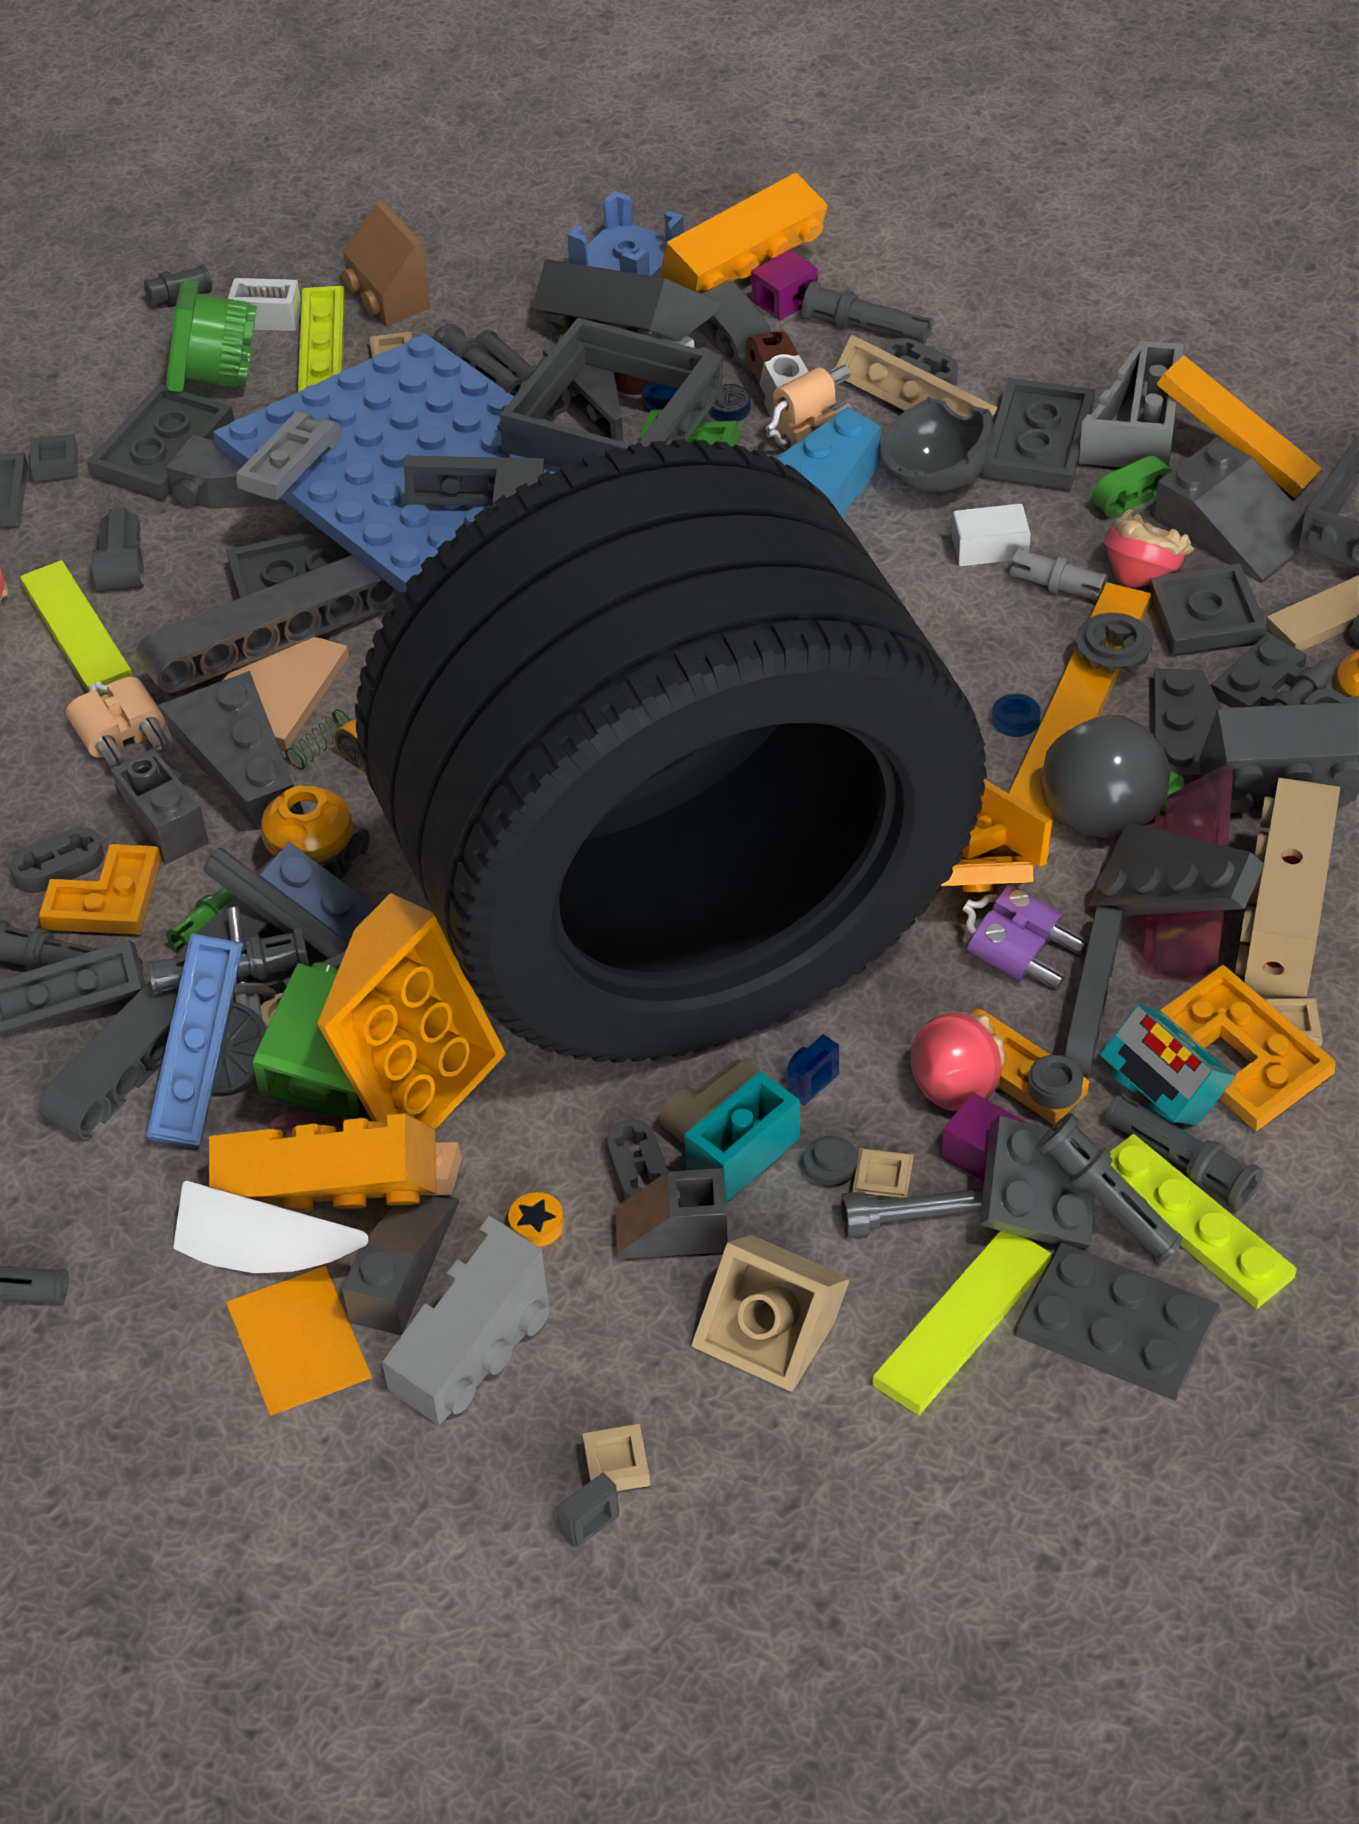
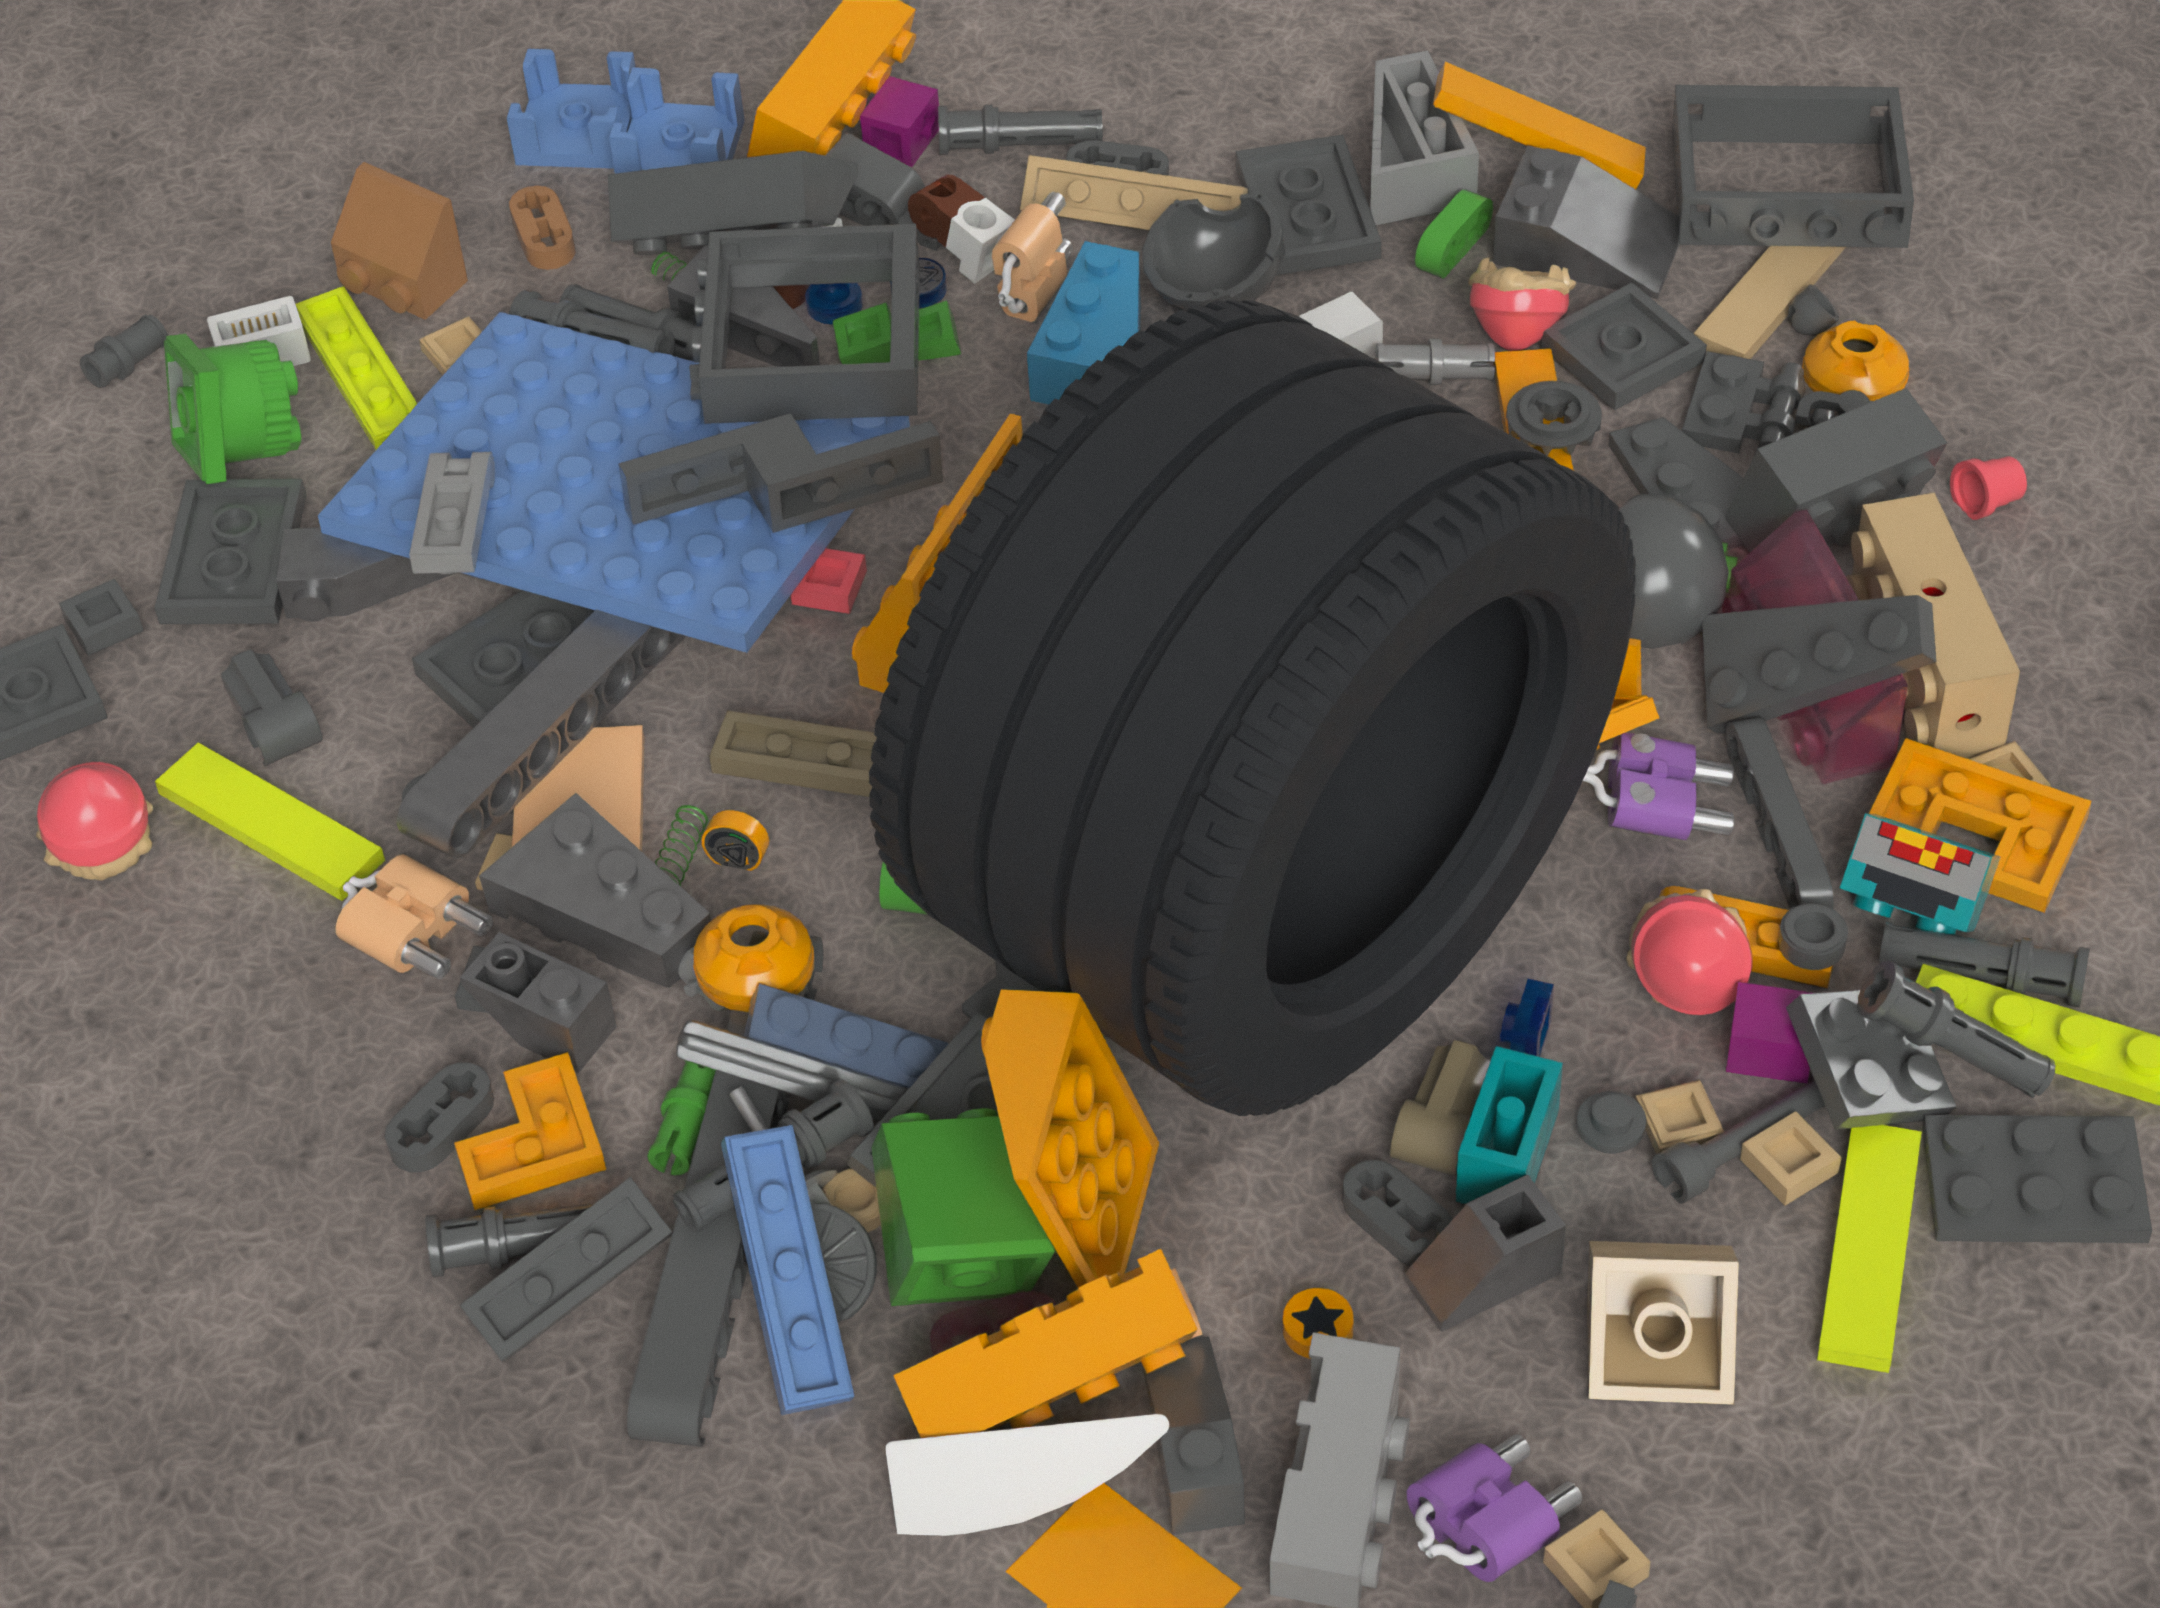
camera: 25 degrees left, 0 degrees up
(506, 286) = (552, 224): none -> medium nougat beam
(558, 210) = (568, 121): none -> medium blue panel
(561, 1392) = (1485, 1512): none -> medium lavender piece
(941, 1234) = (1790, 1158): none -> tan plate

